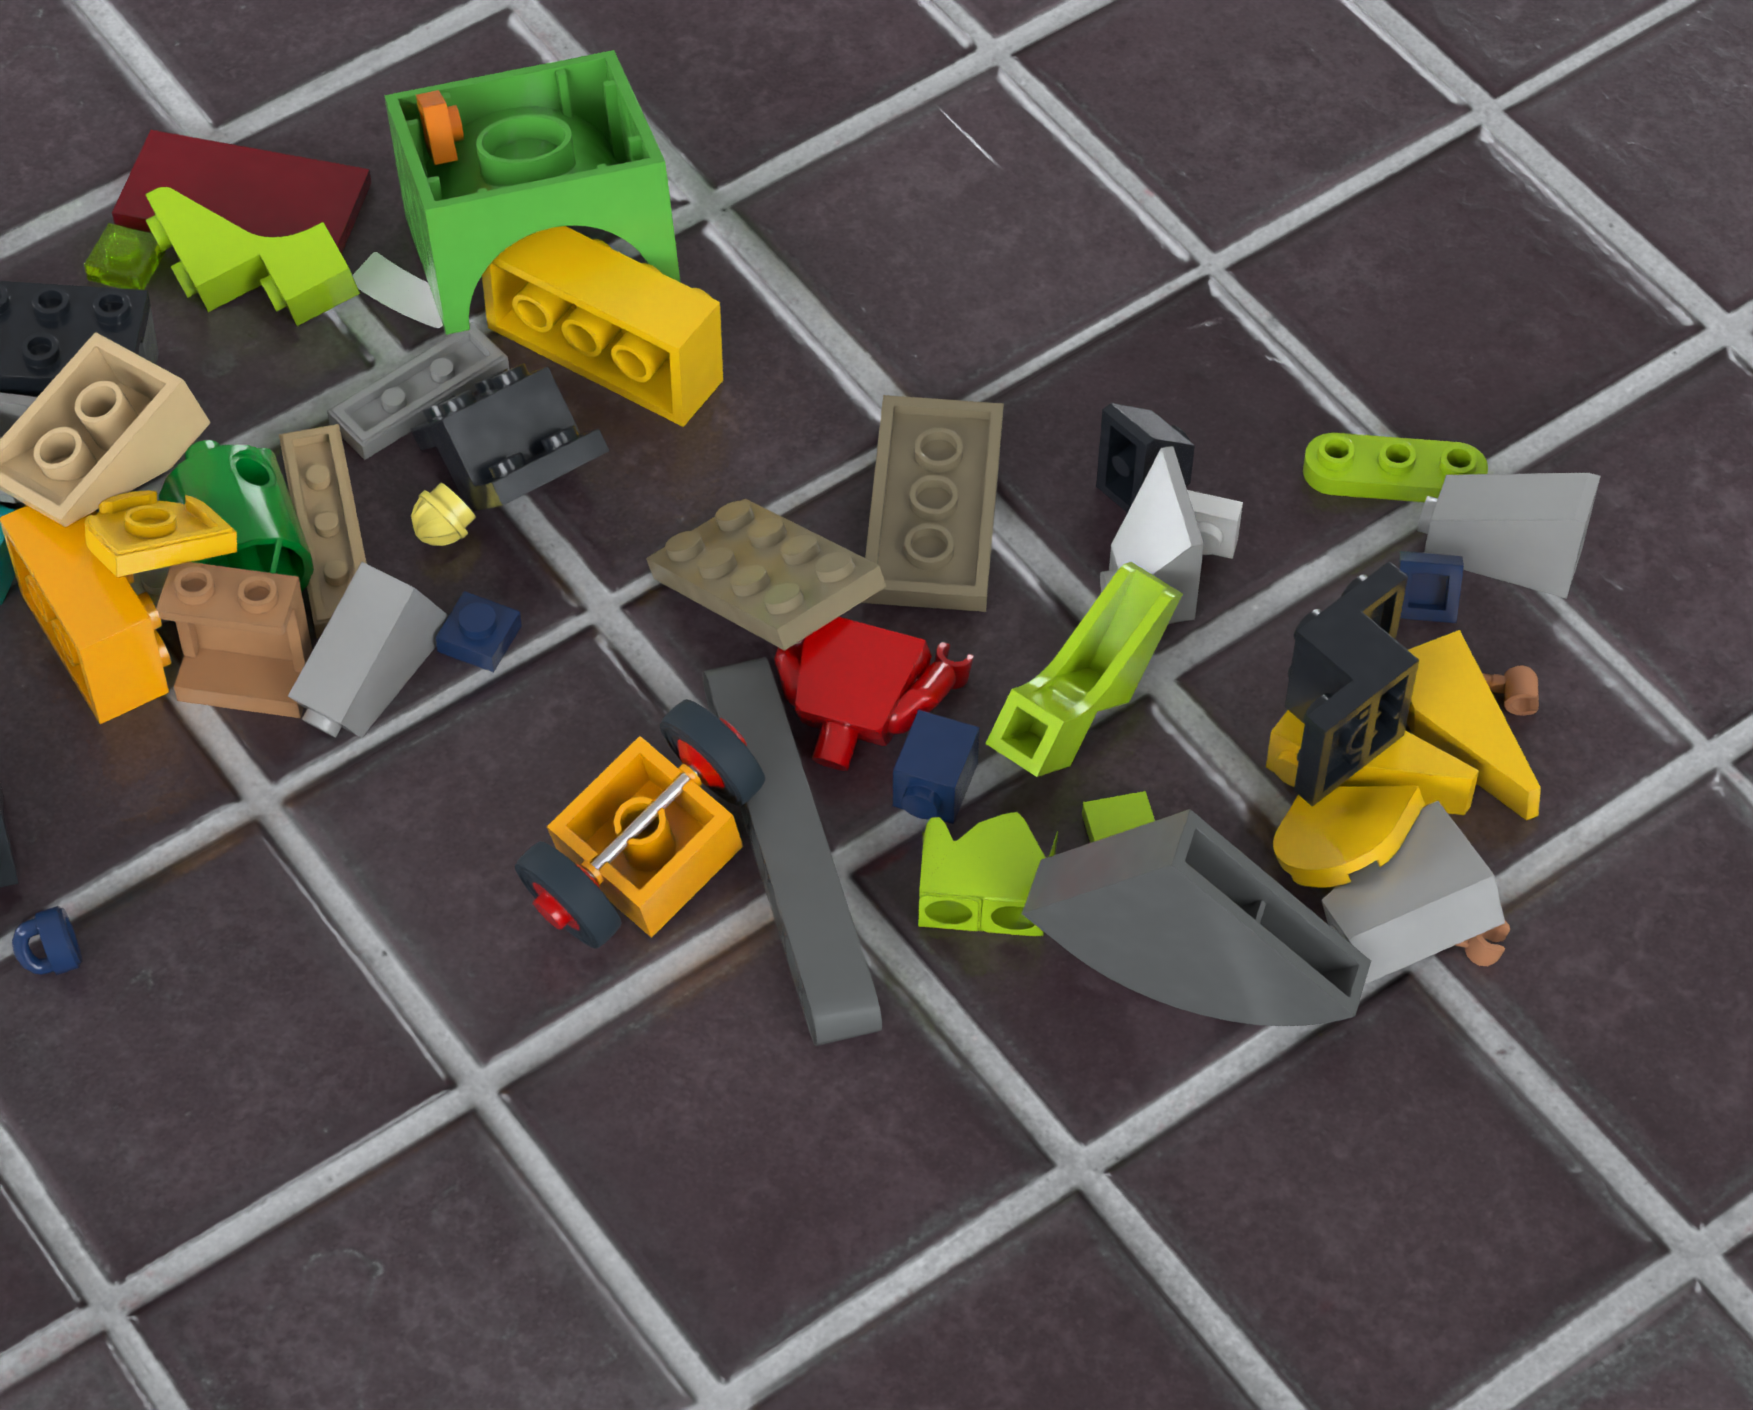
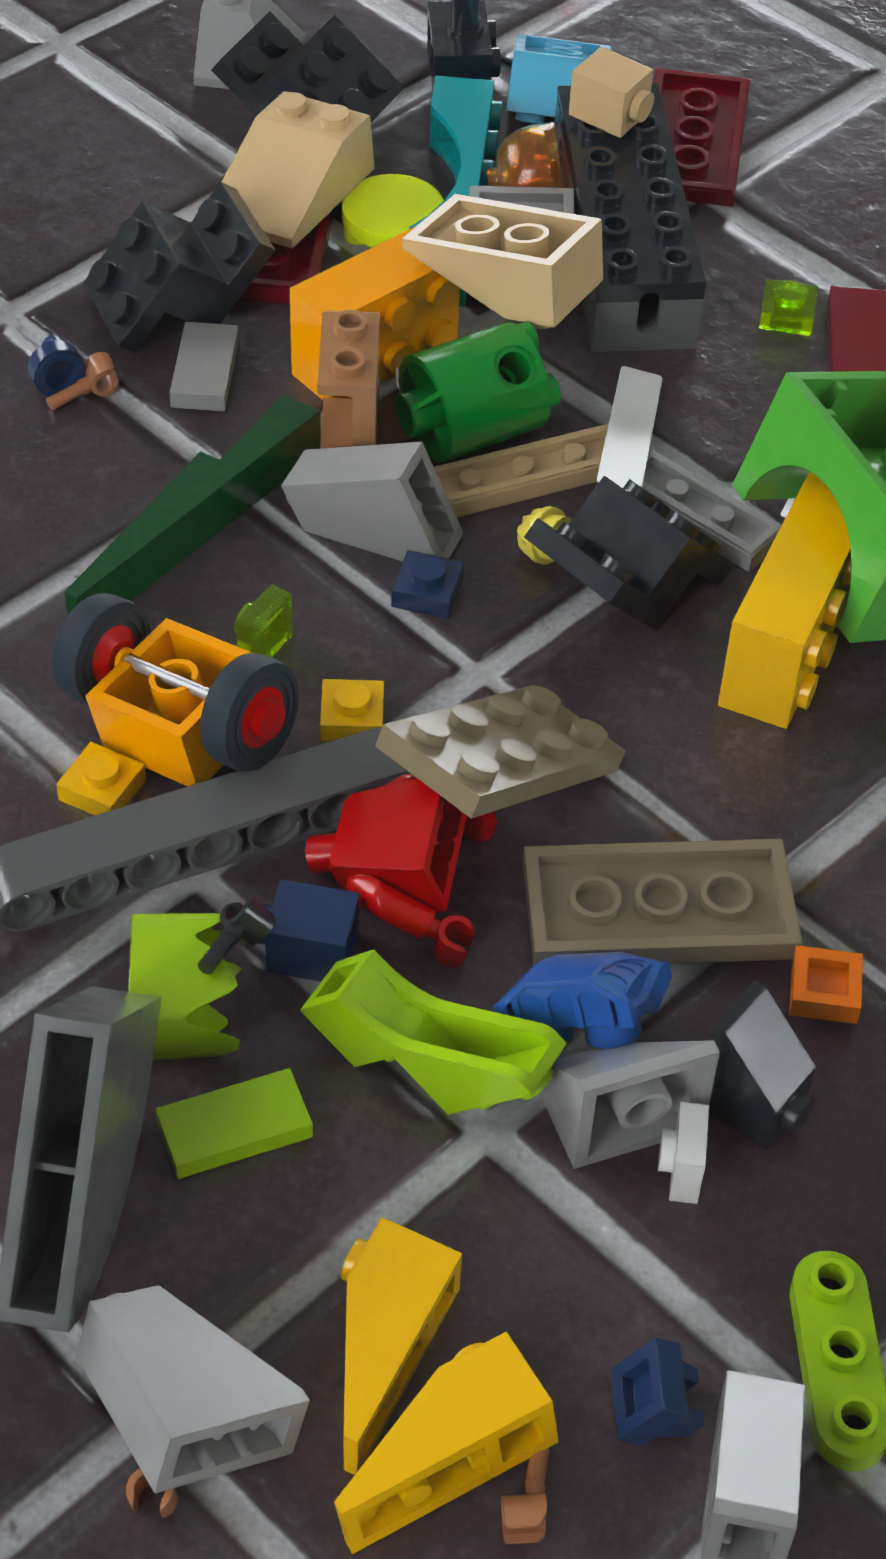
camera: 80 degrees right, 5 degrees down
(72, 898) = (99, 379): none -> nougat hand
(76, 800) = (204, 366): none -> light grey tile
(145, 534) = (409, 301): yellow tile -> none
(227, 261) = (791, 339): lime arch -> none
(302, 421) = (630, 426): none -> white sticker
(331, 818) = (201, 503): none -> dark green slope
(528, 770) = (266, 622): none -> clear neon green plate
(639, 711) = (350, 707): none -> yellow plate
(701, 938) = (101, 780): none -> yellow plate
(963, 807) = (244, 922): none -> black hand
(1041, 400) = (826, 984): none -> orange plate
(1056, 556) = (590, 992): none -> blue slope
(1345, 832) = (258, 1306): yellow tile -> none
(1350, 682) = (410, 1250): black bracket -> none

